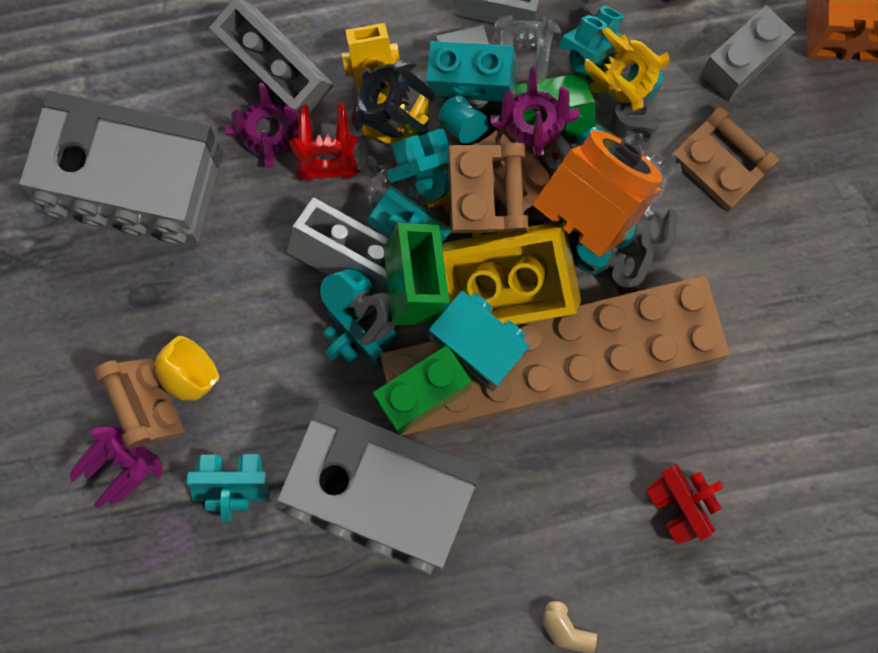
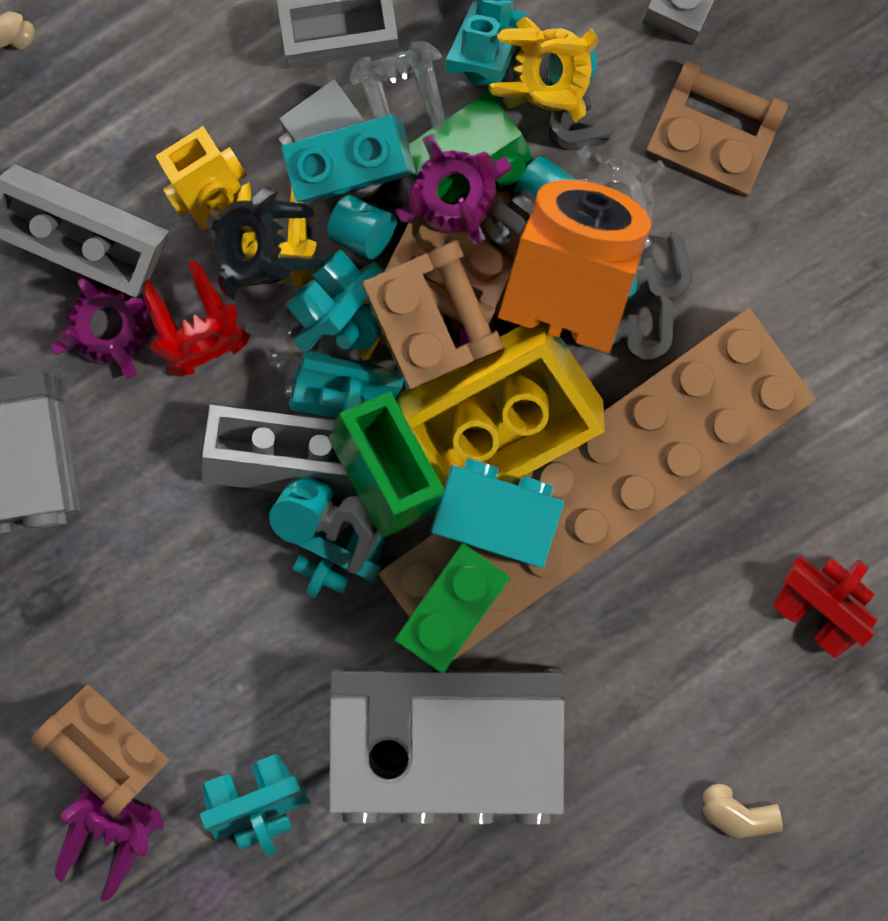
camera: 20 degrees left, 10 degrees up
(185, 369) = (139, 685): yellow hair -> none

